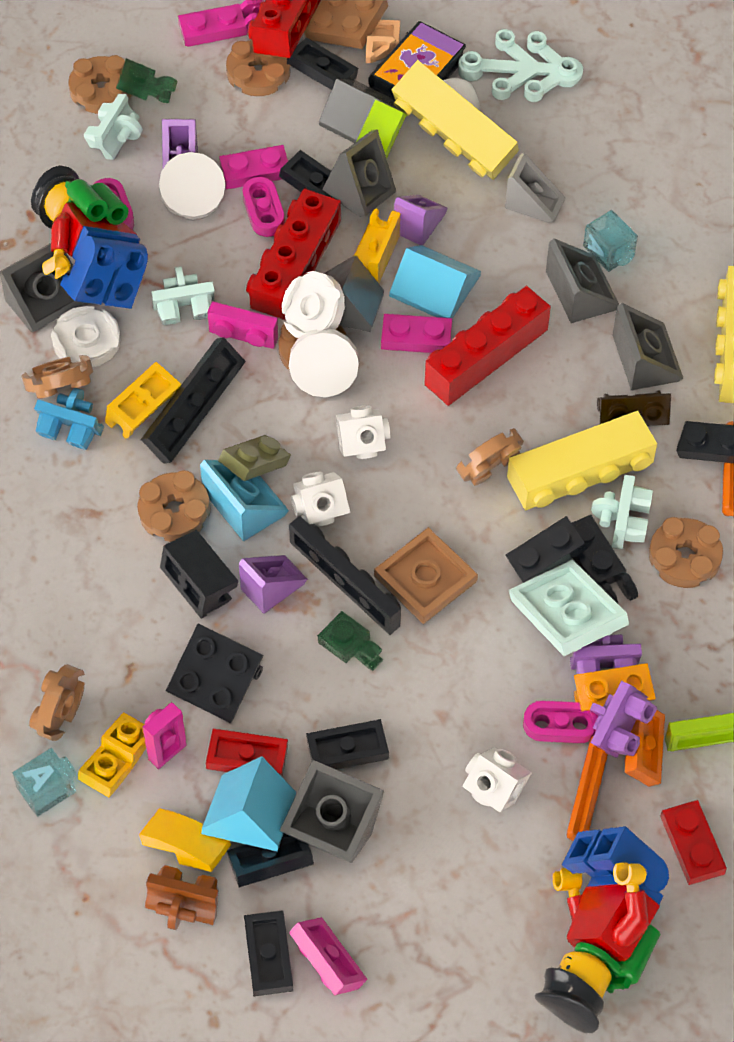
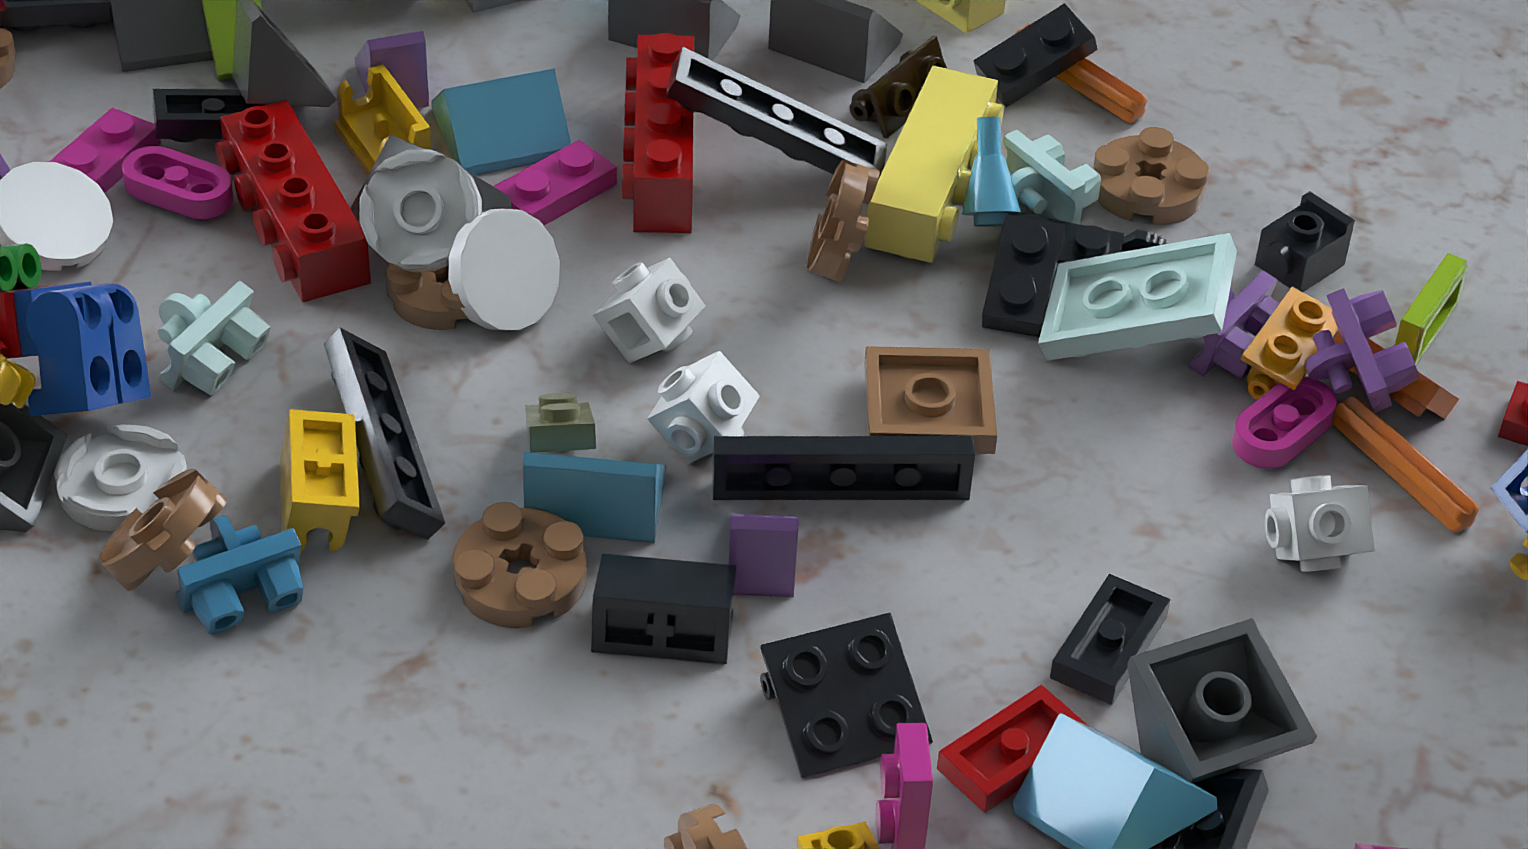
camera: 50 degrees left, 15 degrees down
(243, 325) = (312, 315): dark pink plate -> none
(347, 639) = (940, 538): clear green plate -> none
(529, 379) = (769, 115): none -> black plate
(578, 499) = (990, 188): none -> medium azure cone
(698, 648) = (1305, 243): none -> black brick

